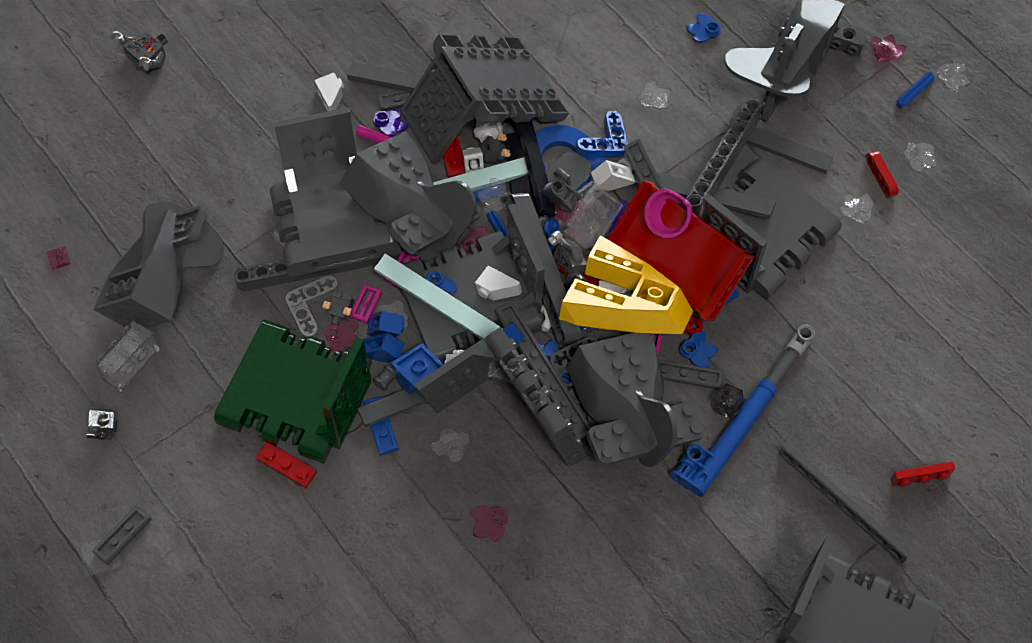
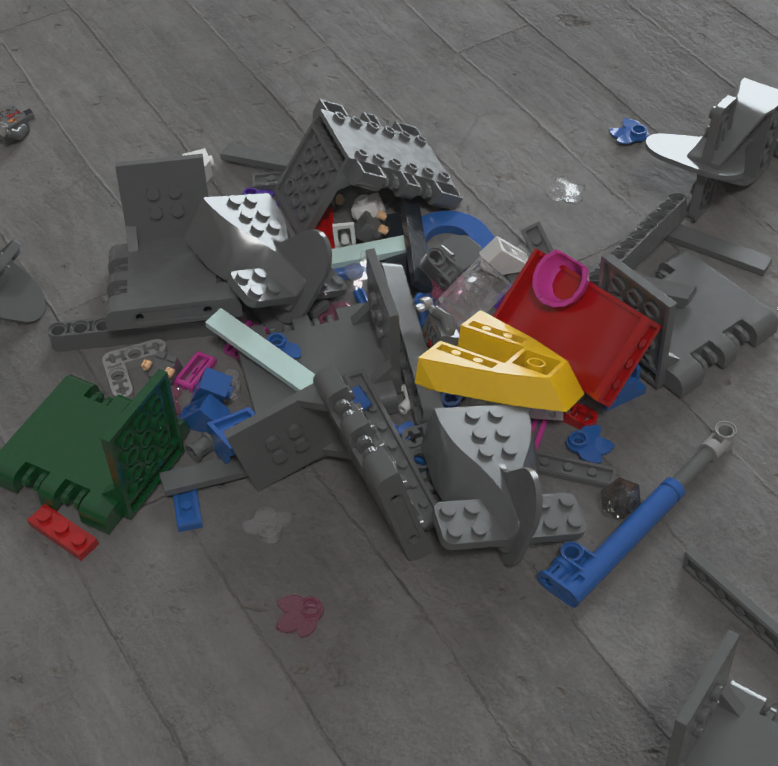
camera: 10 degrees right, 15 degrees down
(496, 285) = (348, 351): white slope -> none
(609, 143) = (507, 231): blue beam -> none

